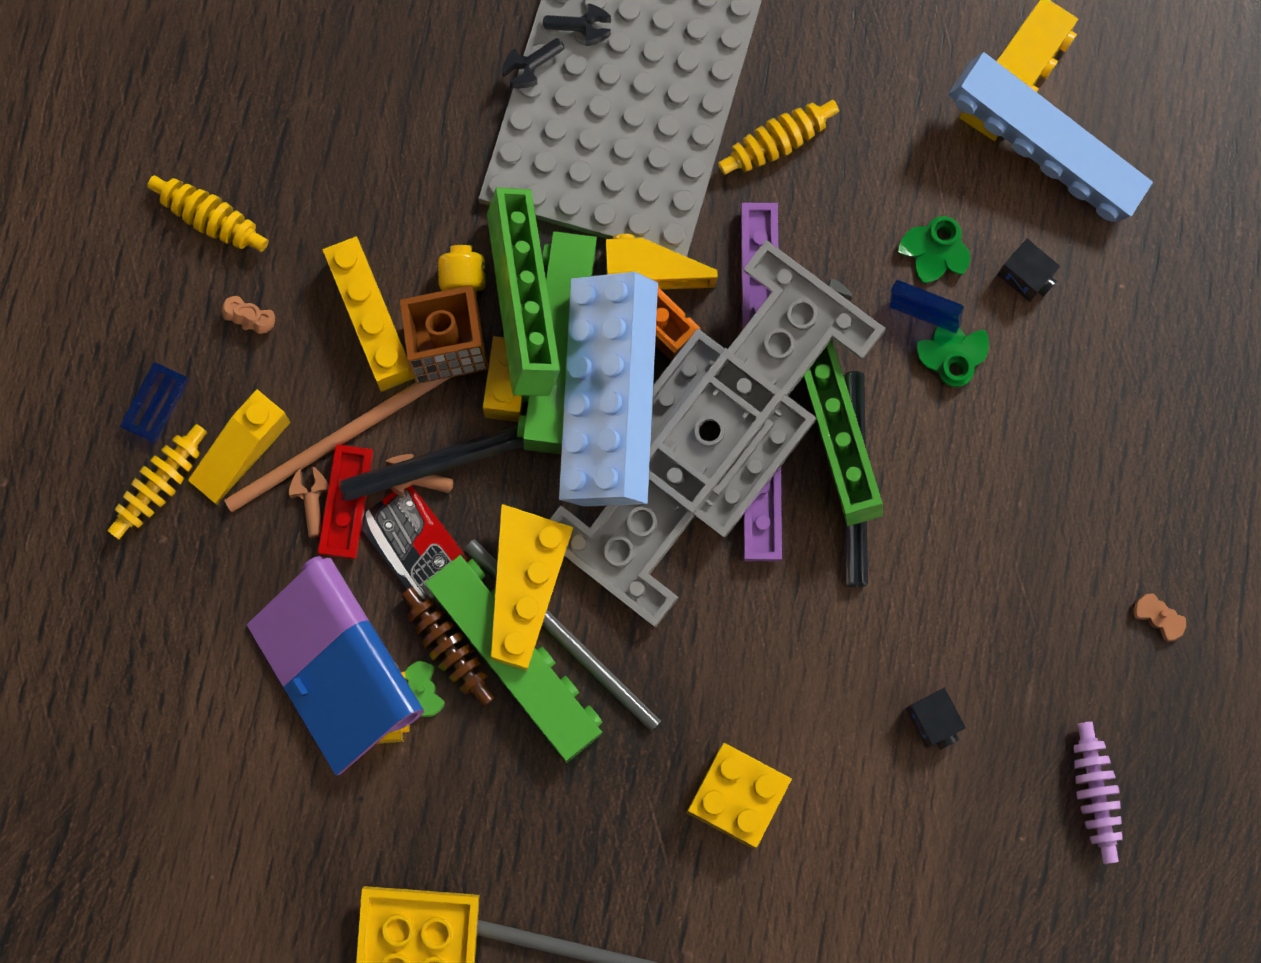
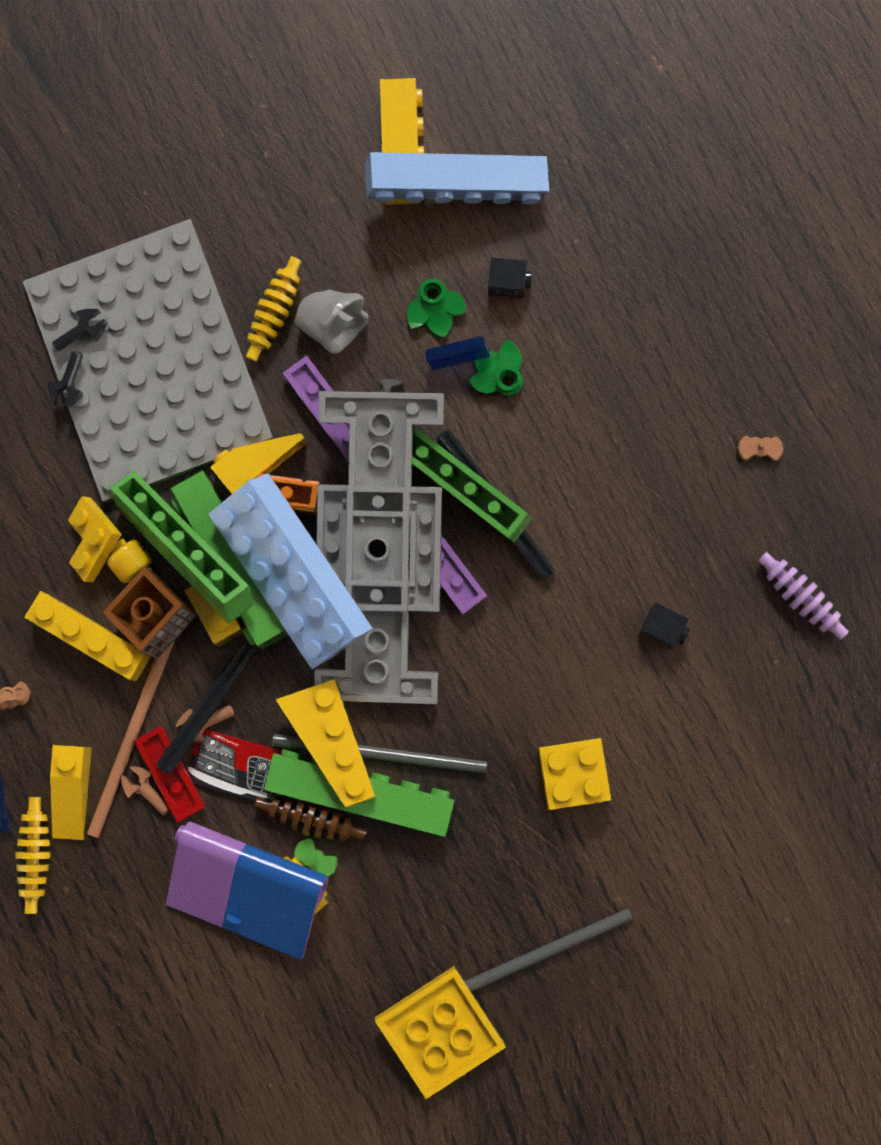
camera: 25 degrees left, 5 degrees up
(448, 229) = (98, 538): none -> yellow plate
(819, 185) = (324, 321): none -> light grey piece

